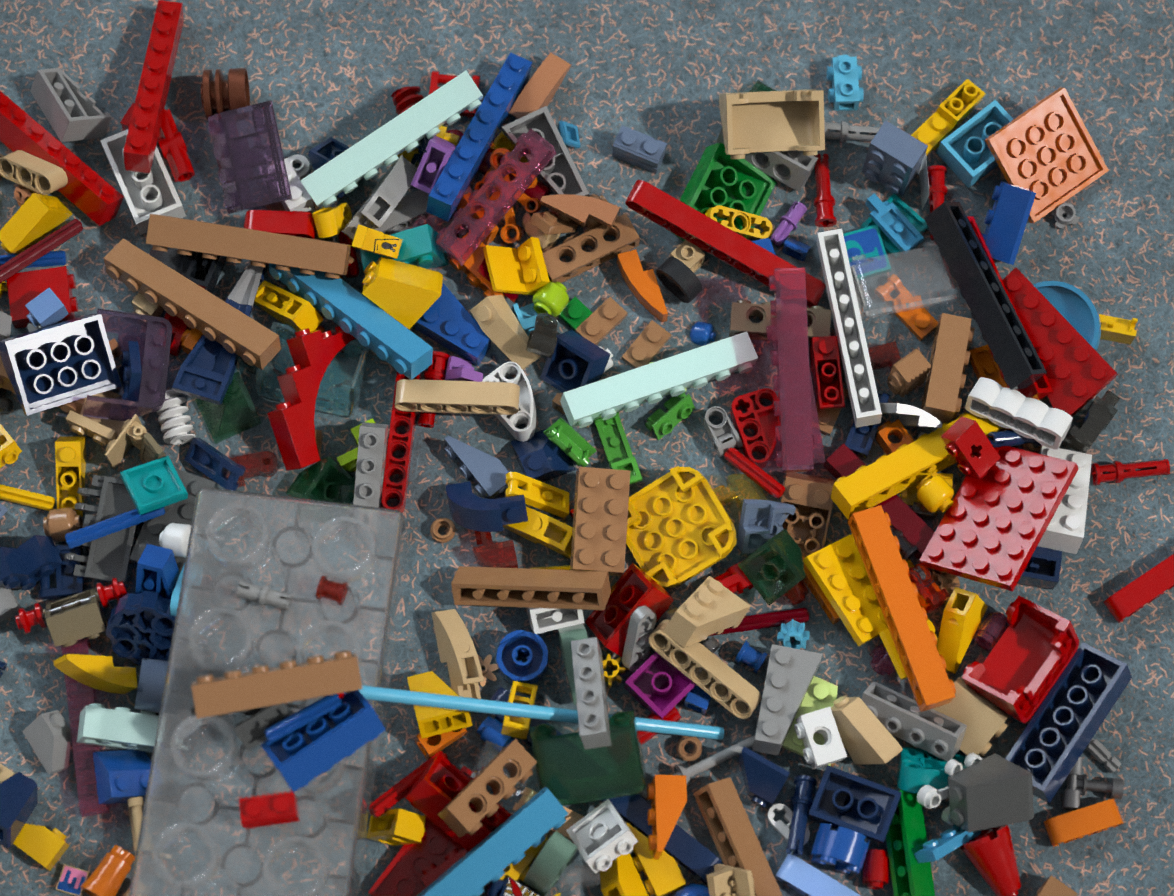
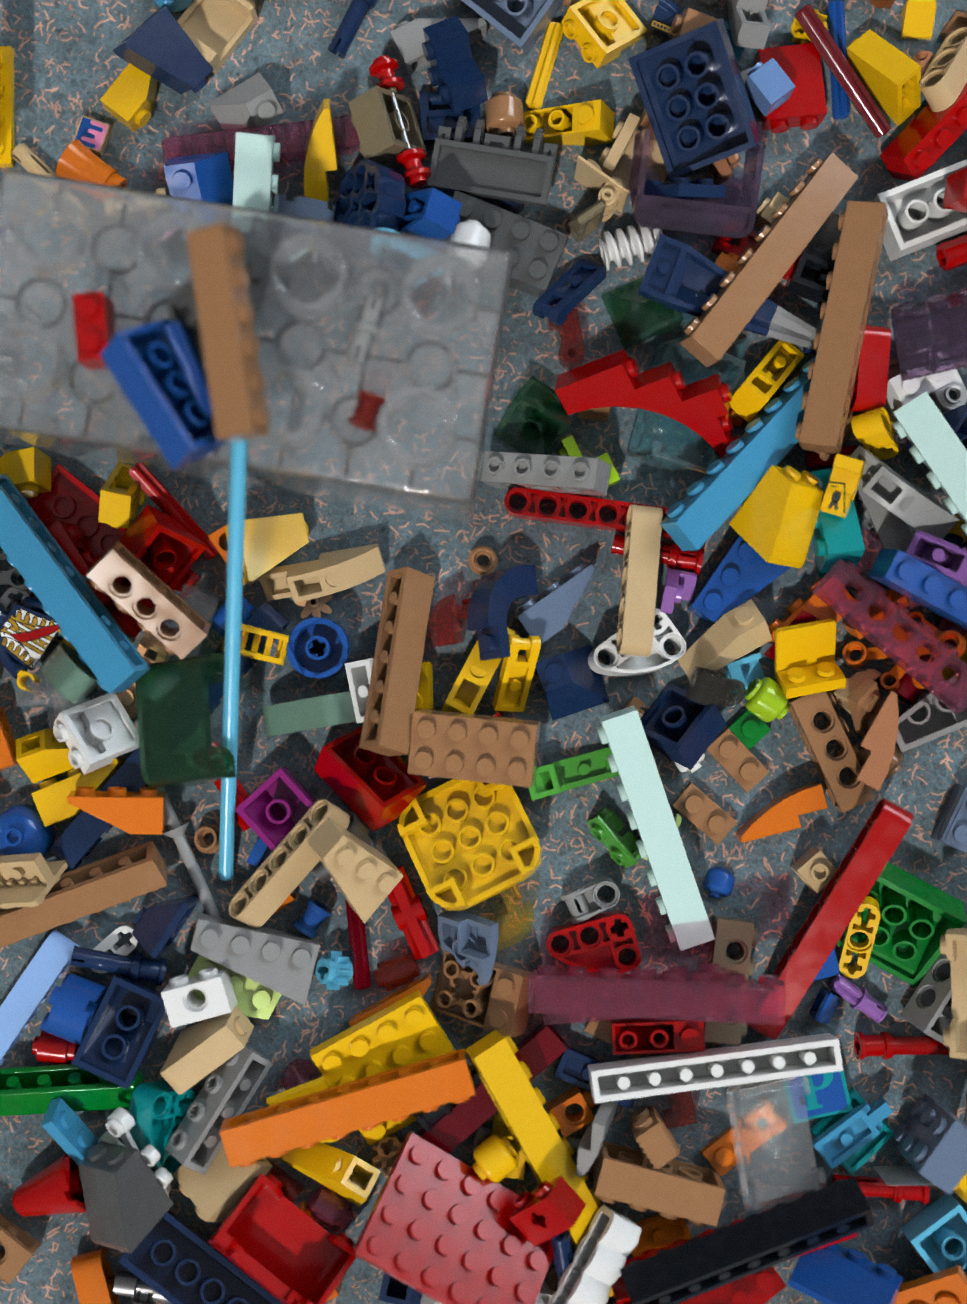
camera: 95 degrees right, 15 degrees up
(109, 526) = (494, 169): blue axle -> none
(154, 485) = (539, 214): teal tile -> none
(570, 442) = (582, 715): bright green hinge -> none
(590, 693) = (250, 726): light grey brick -> none
(615, 666) = (298, 756): yellow gear -> none
(640, 625) = (330, 787): light grey beam -> none
(679, 279) = (786, 859): black tyre -> none
(754, 472) = (533, 937): red axle -> none
(775, 567) = (412, 956): clear green slope -> none
(929, 593) = (370, 1143): clear red leg -> none

